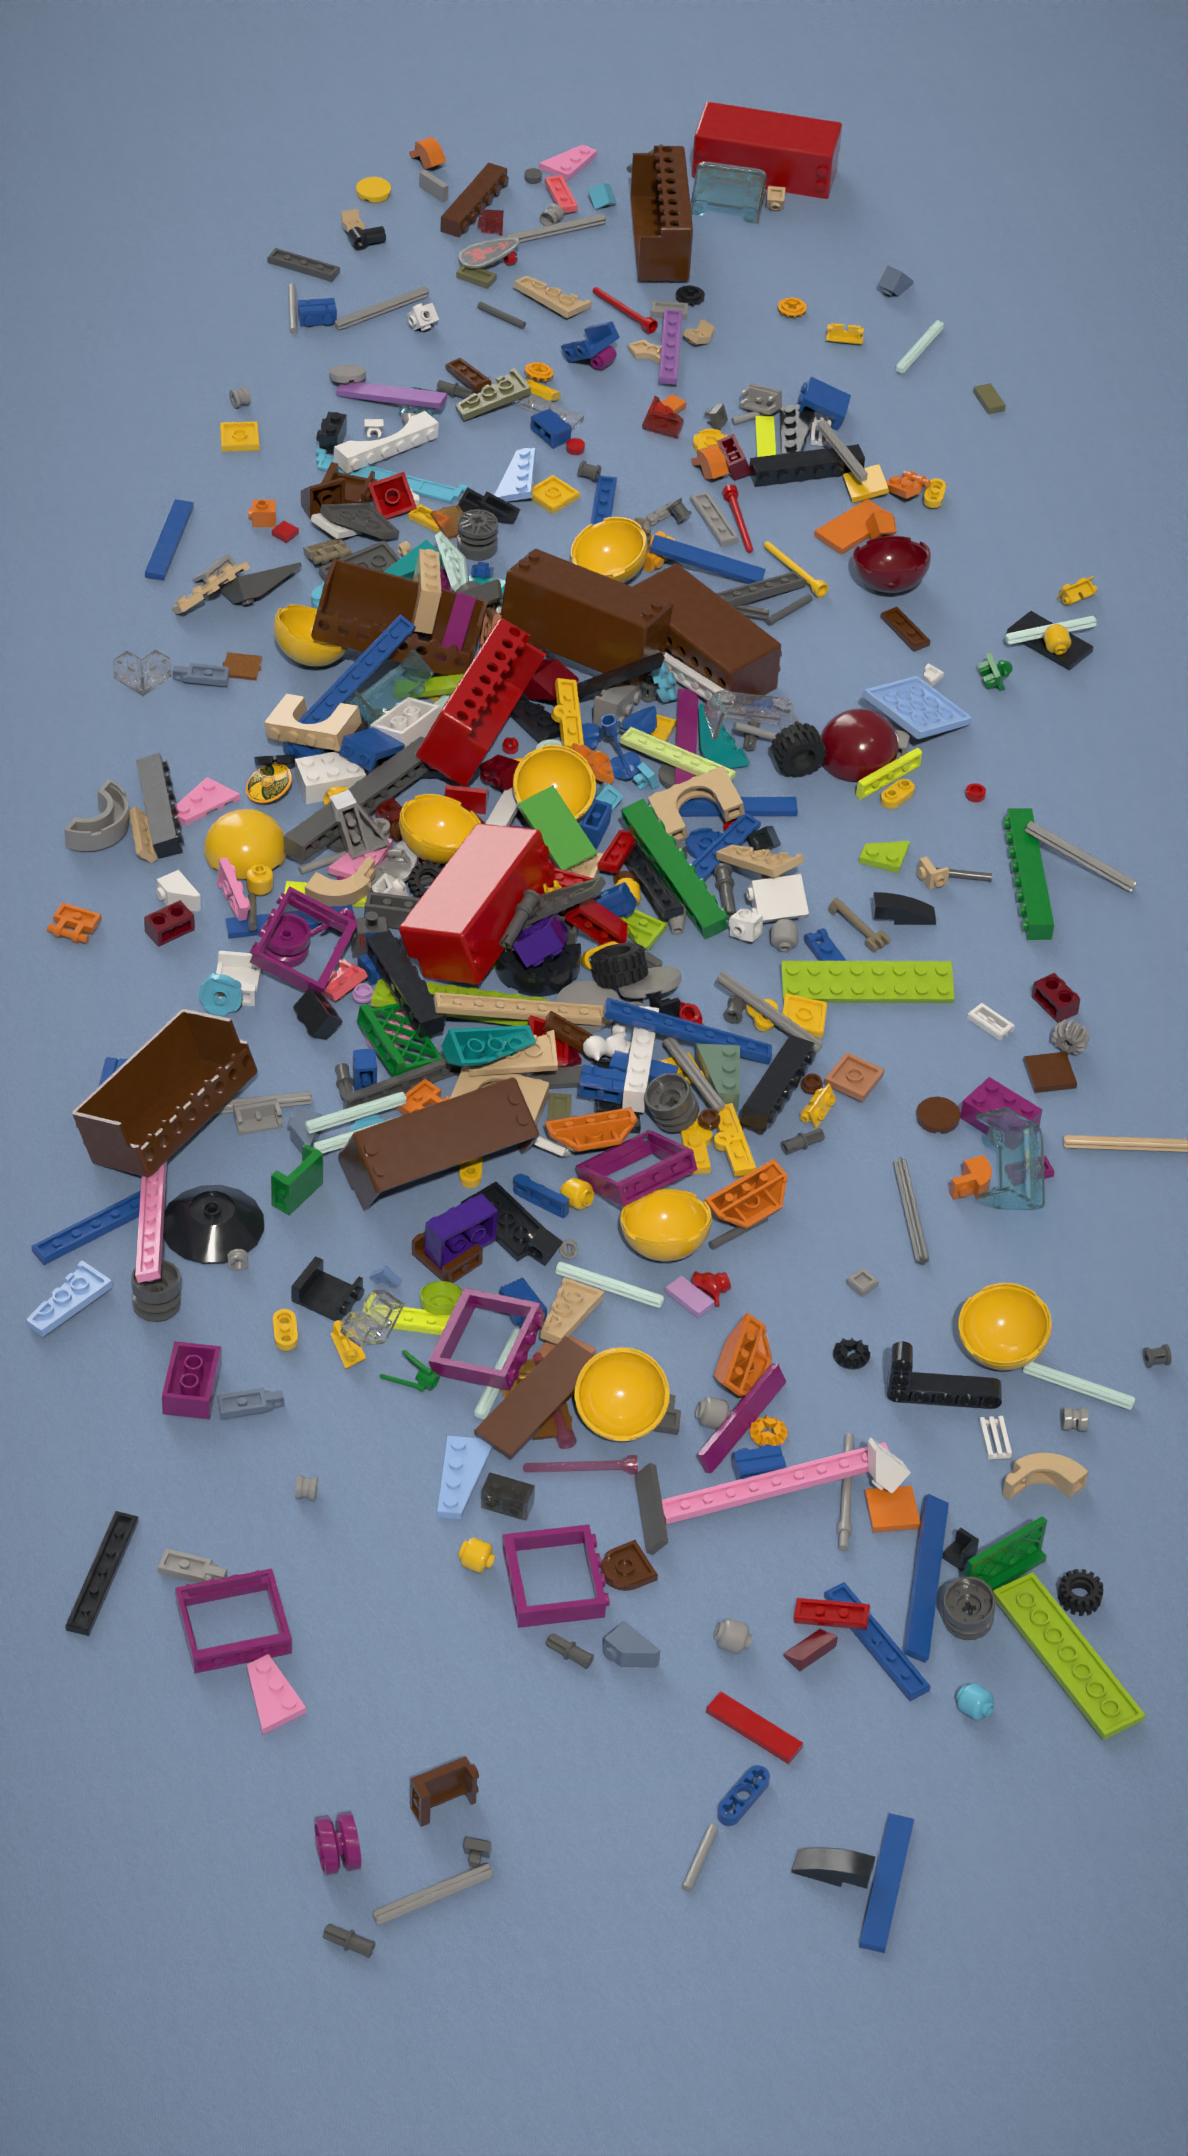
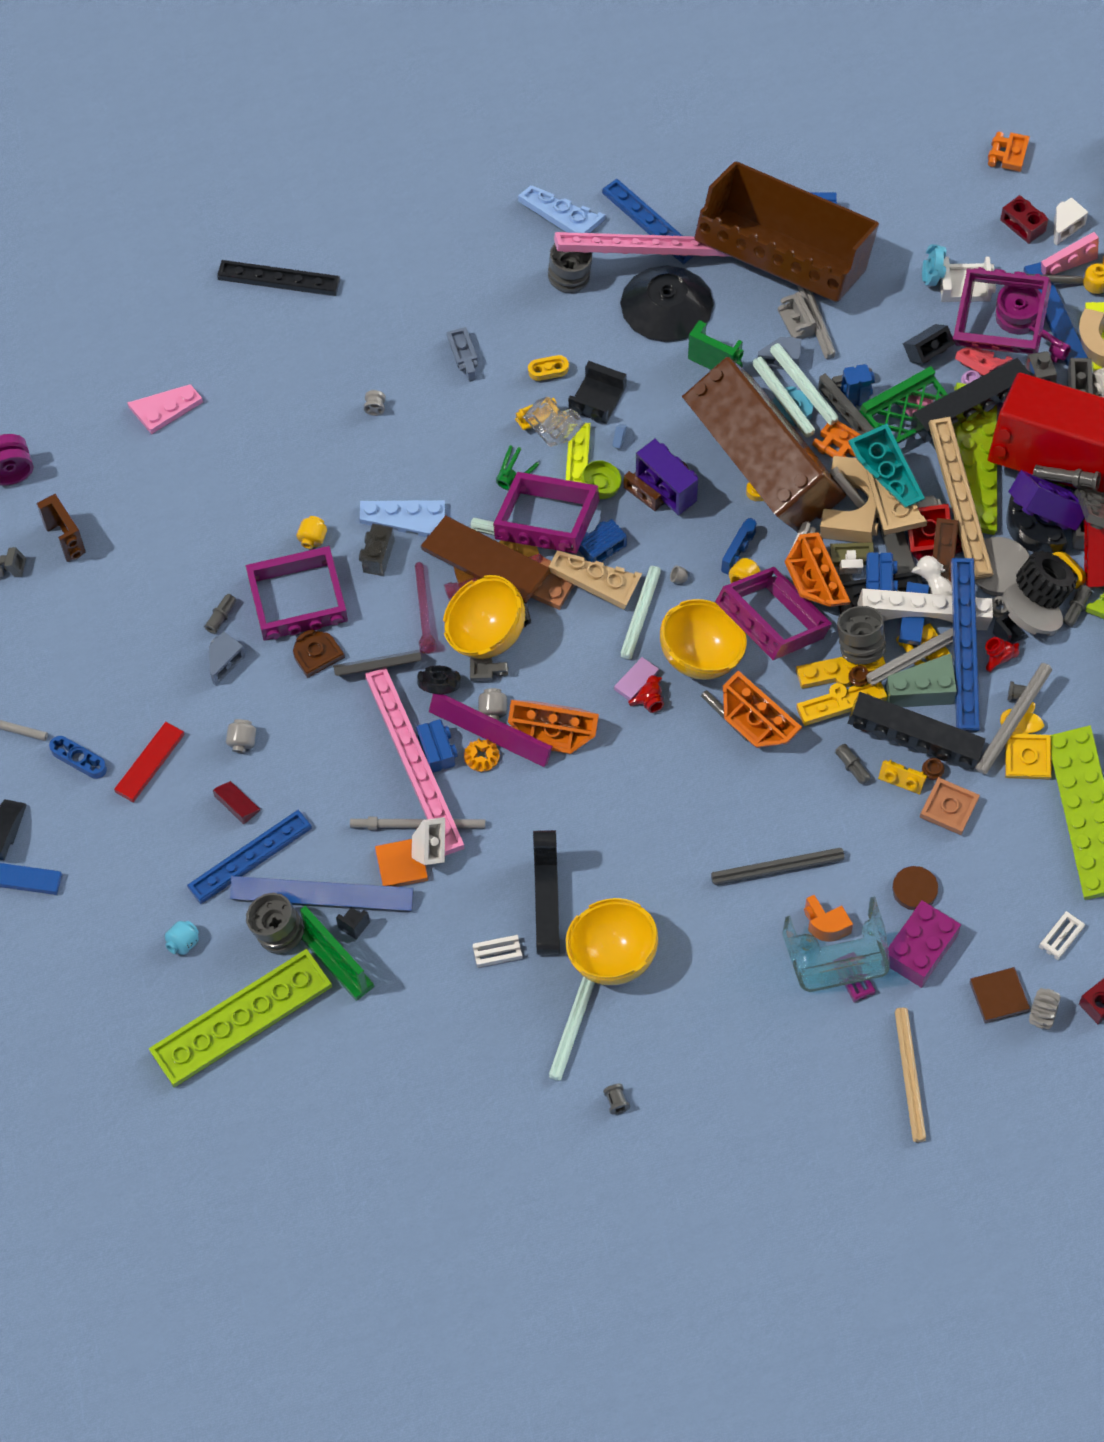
camera: 90 degrees right, 15 degrees up
(189, 1567) = (284, 334): light grey hinge -> none
(191, 1380) = (476, 304): magenta brick -> none
(237, 1259) = (622, 323): light grey bush -> none
(241, 1651) = (224, 339): magenta window -> none
(513, 1220) = (706, 524): black tile -> none
(542, 1245) = (671, 549): black brick -> none
(577, 1107) = (851, 564): none -> white tile
(681, 1454) = (438, 680): none -> black tile
(832, 1613) = (271, 815): red tile -> none
(855, 1360) = (590, 828): black gear -> none
(862, 1282) = (678, 827): light grey tile -> none
(1047, 1469) = (456, 1006): tan arch -> none
(1075, 1419) = (523, 1020): light grey wheel -> none
(1079, 1603) = (311, 1015): black tyre -> none

